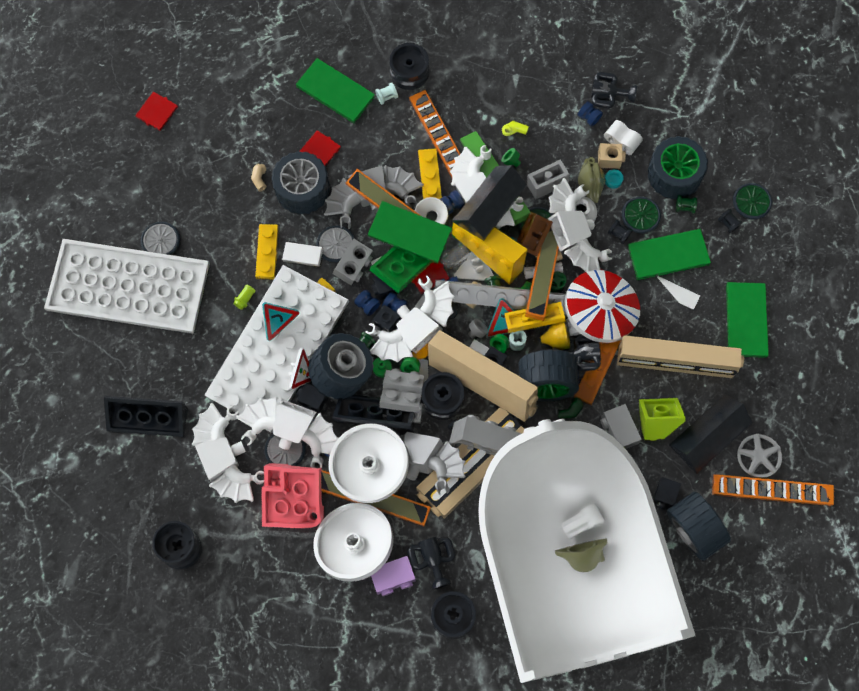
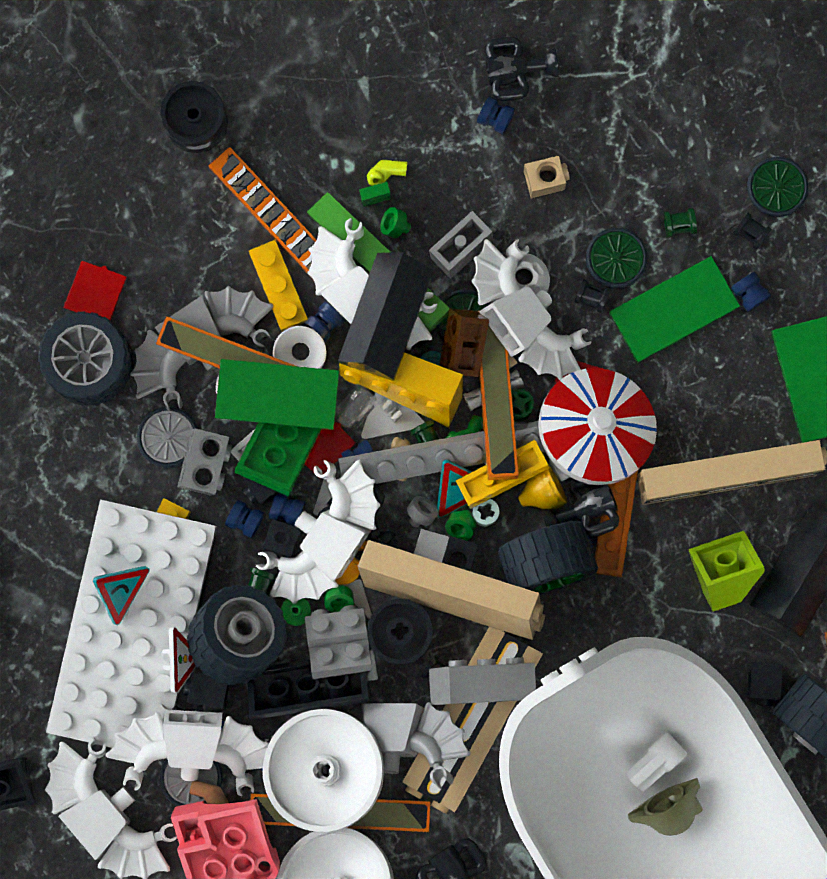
camera: 15 degrees left, 10 degrees up
(243, 298) = (56, 563): lime pin -> none
(257, 172) = (12, 364): tan arm -> none
(267, 251) = (67, 480): yellow plate -> none
(293, 459) = (211, 793): none -> medium nougat arm
(302, 254) = (123, 469): white tile -> none
(335, 90) = (89, 186): green tile -> none
(386, 93) = (171, 170): light aqua bush -> none
(504, 138) = (375, 194): none -> green tile
(573, 410) = (597, 594): dark green arm -> none
(593, 179) = (526, 221): olive hat -> none
(613, 179) = (559, 210): teal tile -> none
(621, 134) = (556, 140): white axle -> none
(621, 426) = (673, 603): light grey brick -> none
(677, 167) = (652, 169): black wheel -> none
(681, 294) = (710, 367): white sticker -> none
(720, 255) = (751, 291): none -> dark blue wheel

